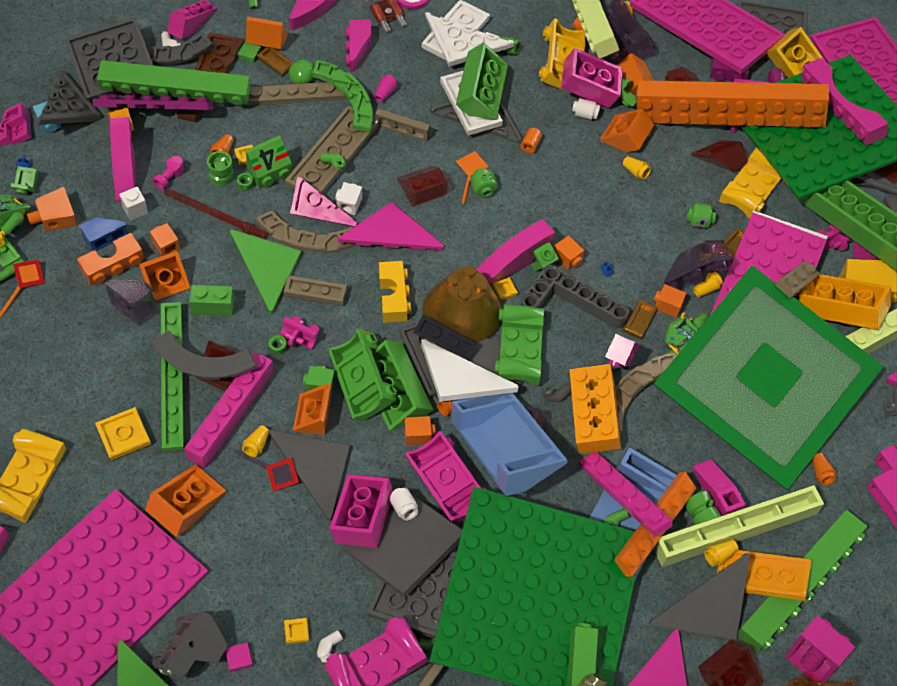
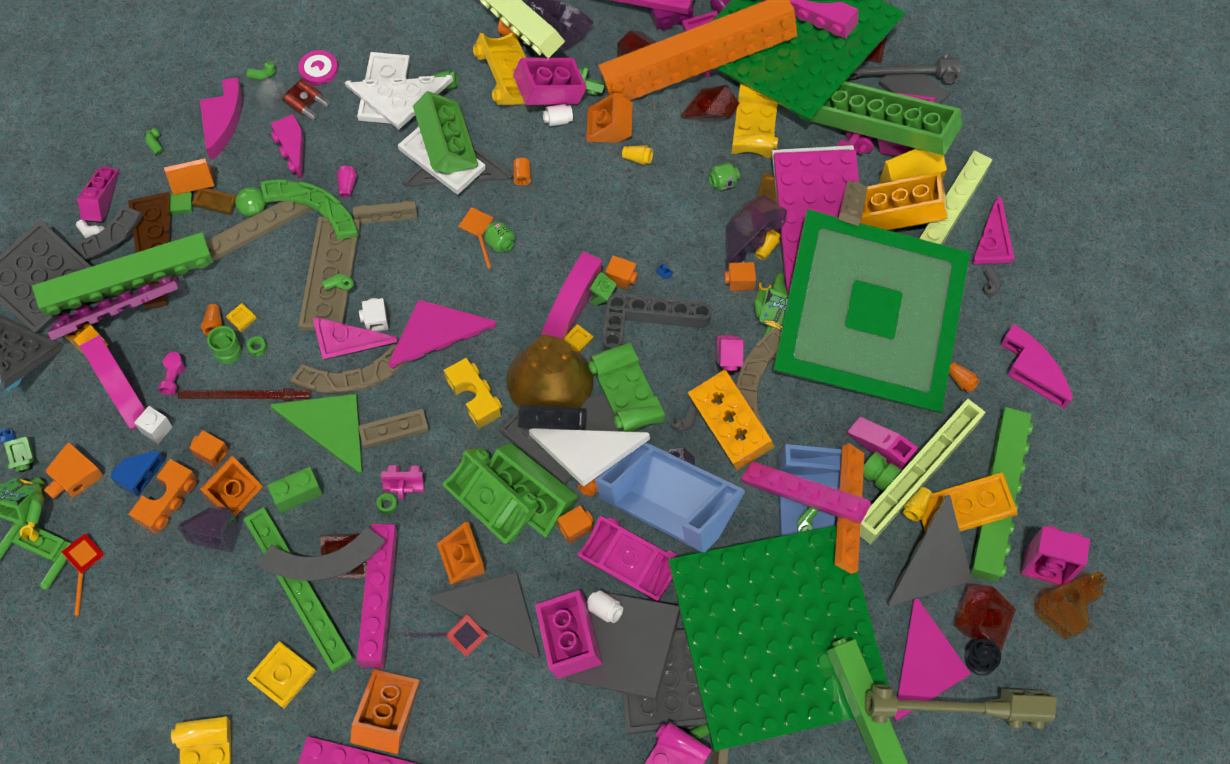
camera: 25 degrees left, 5 degrees up
(255, 442) = (421, 616): yellow cone -> none
(268, 162) = (273, 316): bright green slope -> none
(318, 376) = (448, 519): bright green brick -> none
(423, 185) = (440, 266): clear red slope -> none
(636, 70) = (585, 54): orange slope -> none
(640, 319) = (722, 308): pearl gold tile -> none

